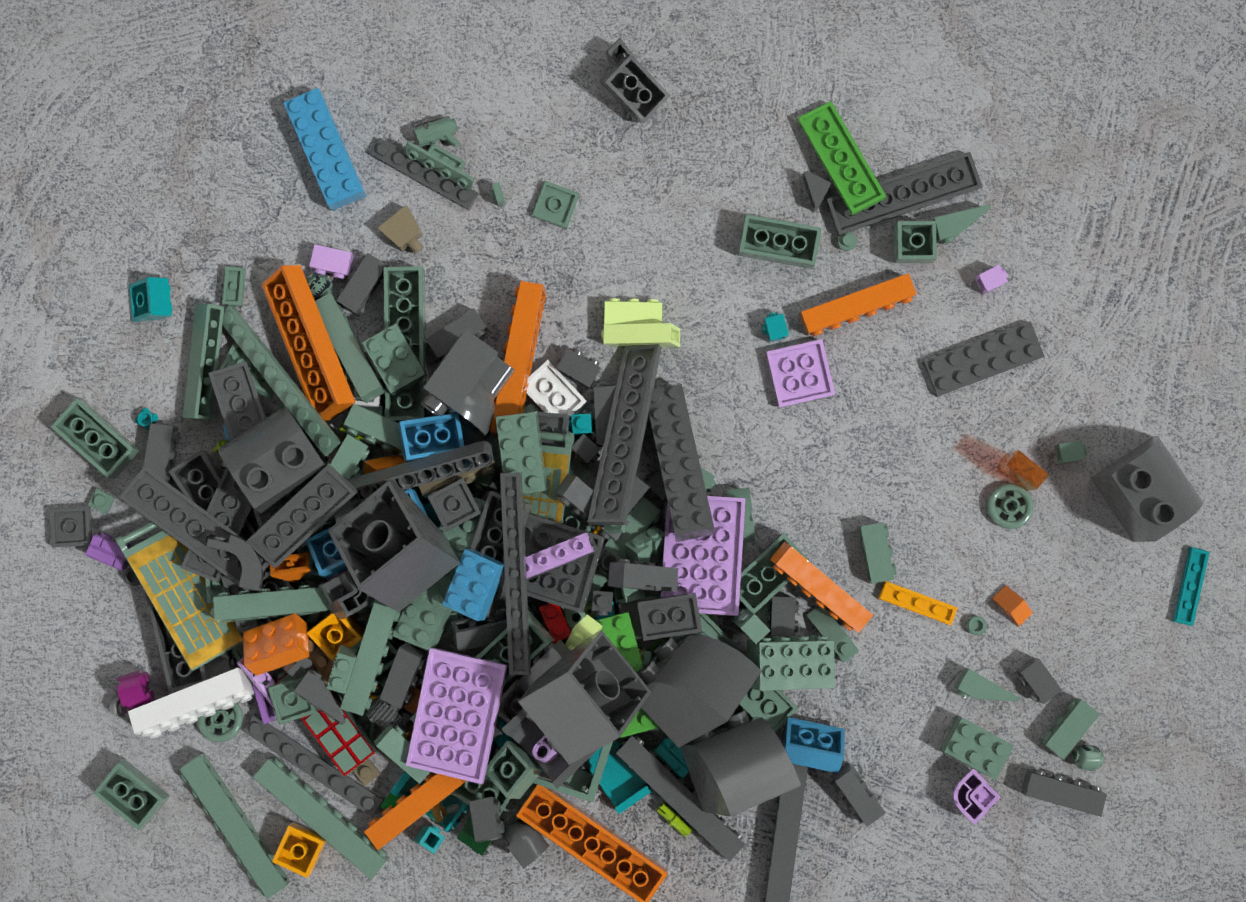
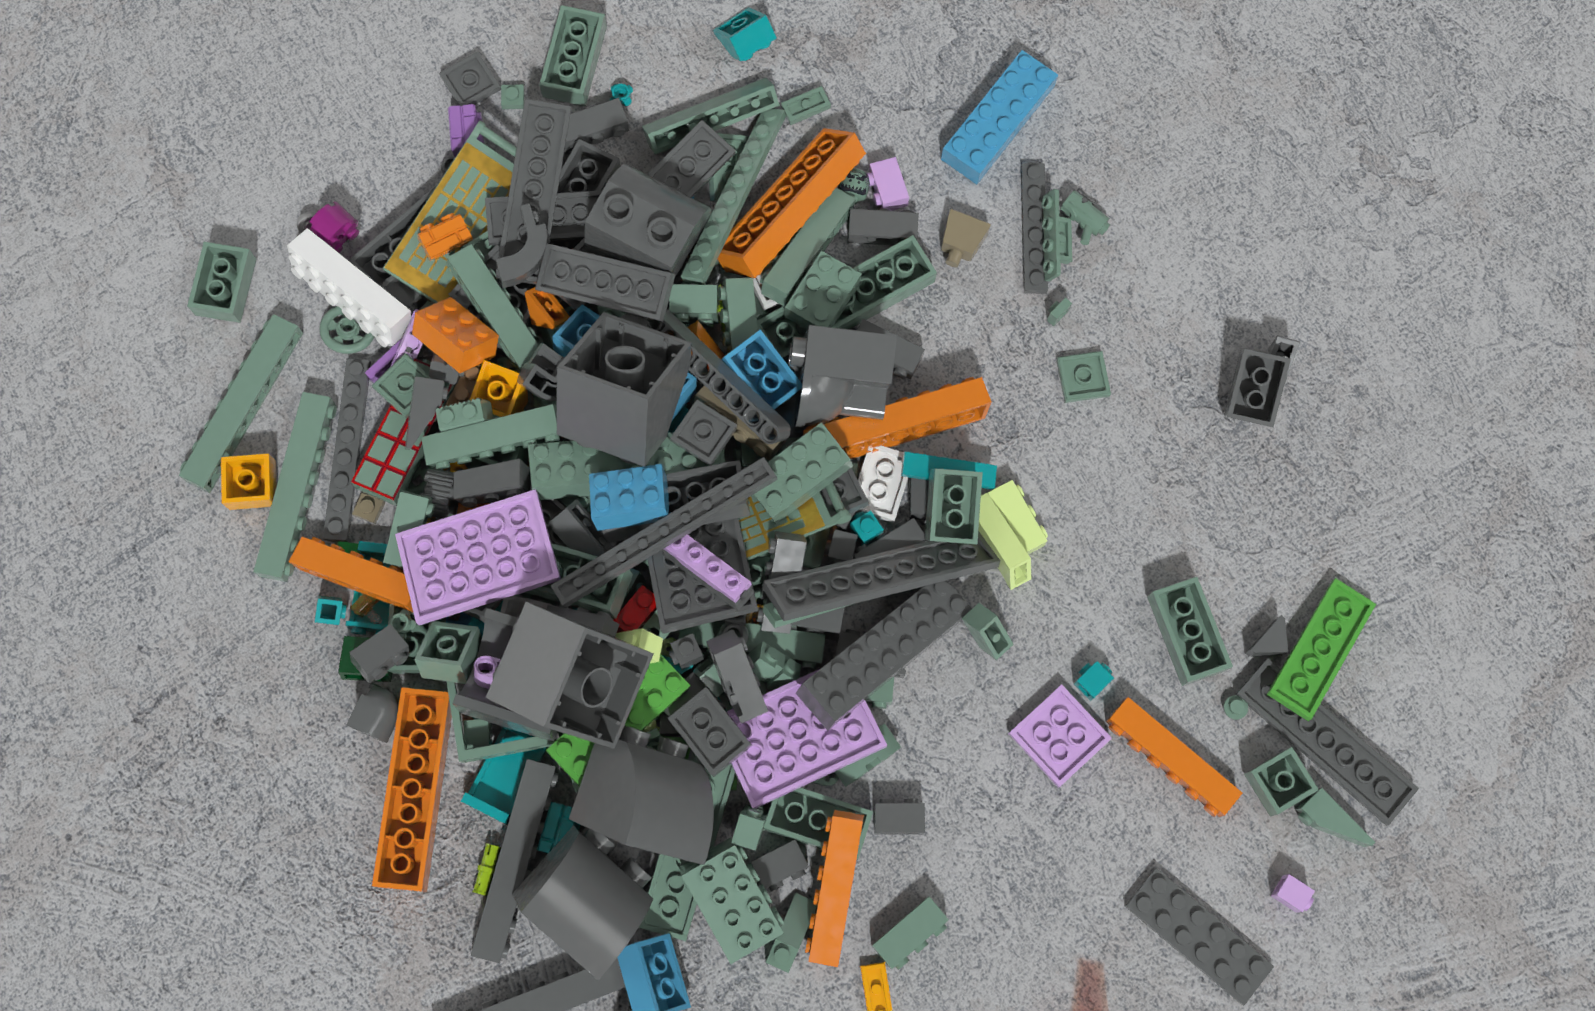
camera: 60 degrees right, 10 degrees down
(193, 612) = (444, 237): none -> orange brick
(467, 796) = (403, 616): none -> sand green plate
(573, 342) = (919, 465): none -> teal tile
(603, 355) = (953, 506): none -> sand green brick
(702, 382) = (987, 631): none -> sand green brick
(796, 516) = (899, 818): none -> dark grey brick

